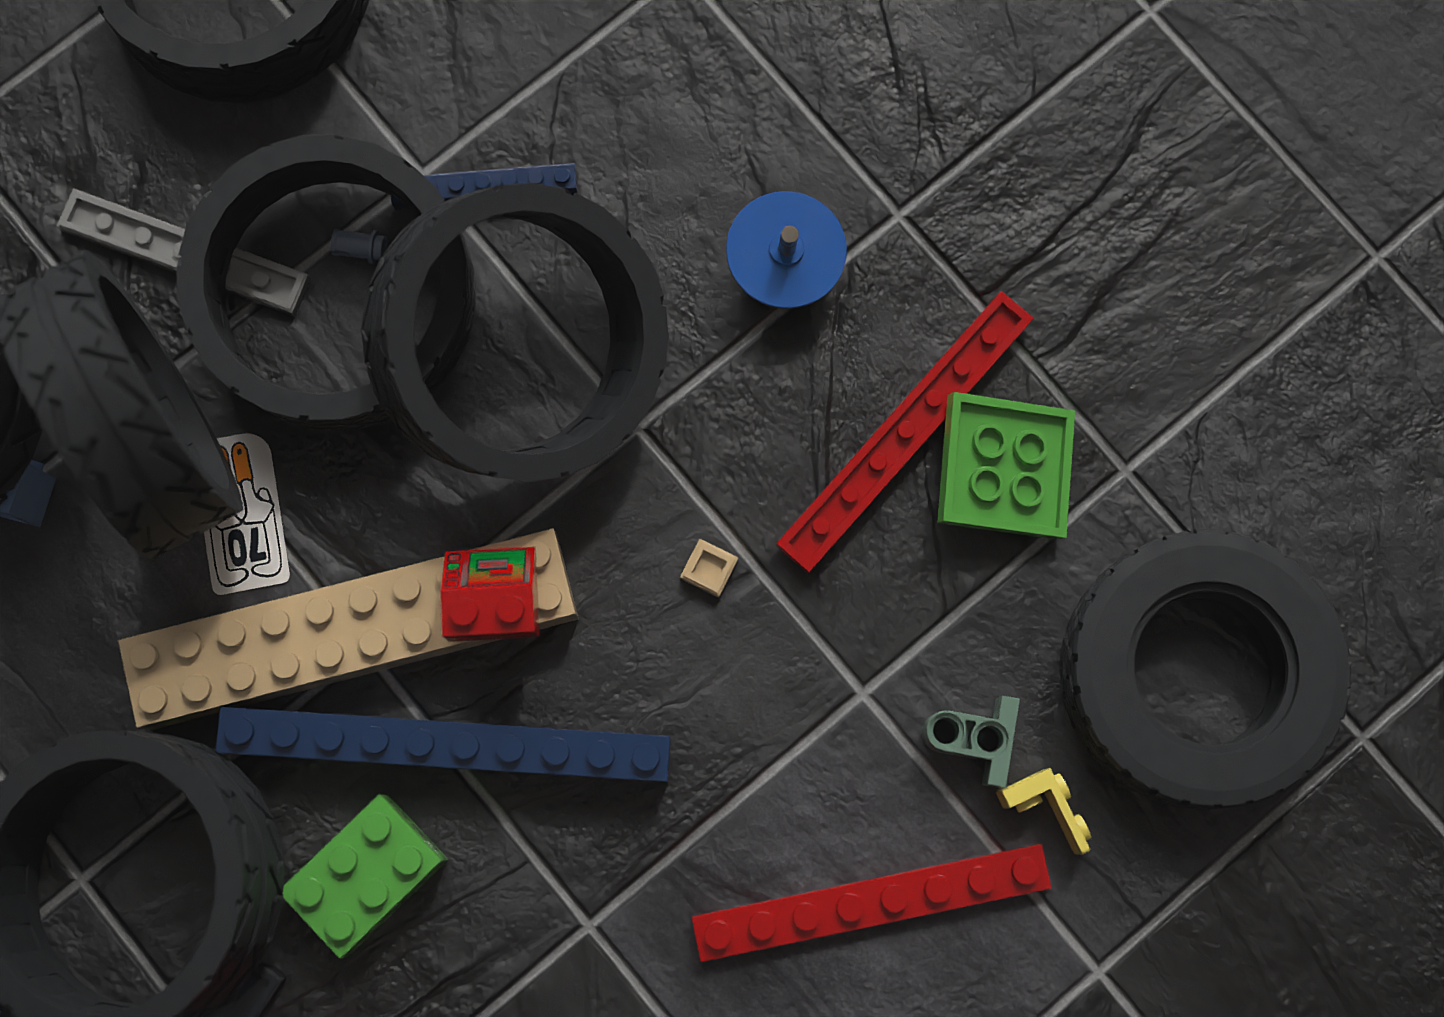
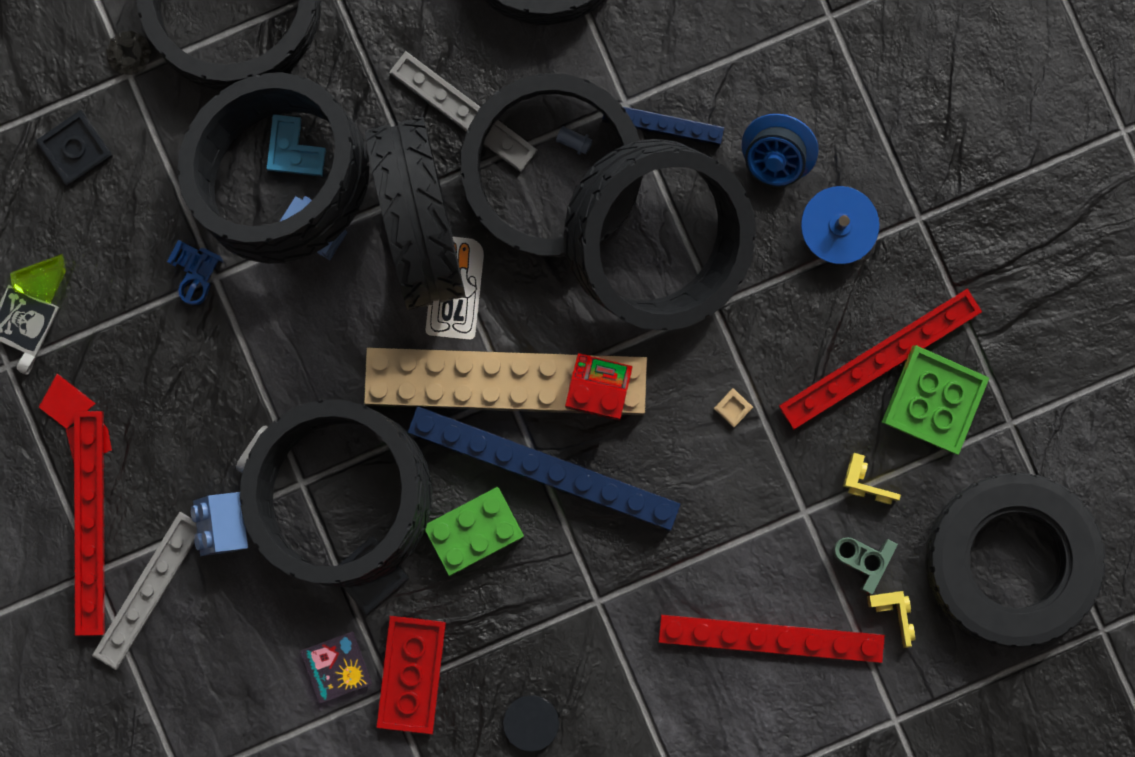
camera: 20 degrees right, 5 degrees up
(663, 166) = (779, 149): none -> blue piece
(923, 605) = (856, 471): none -> light yellow bracket

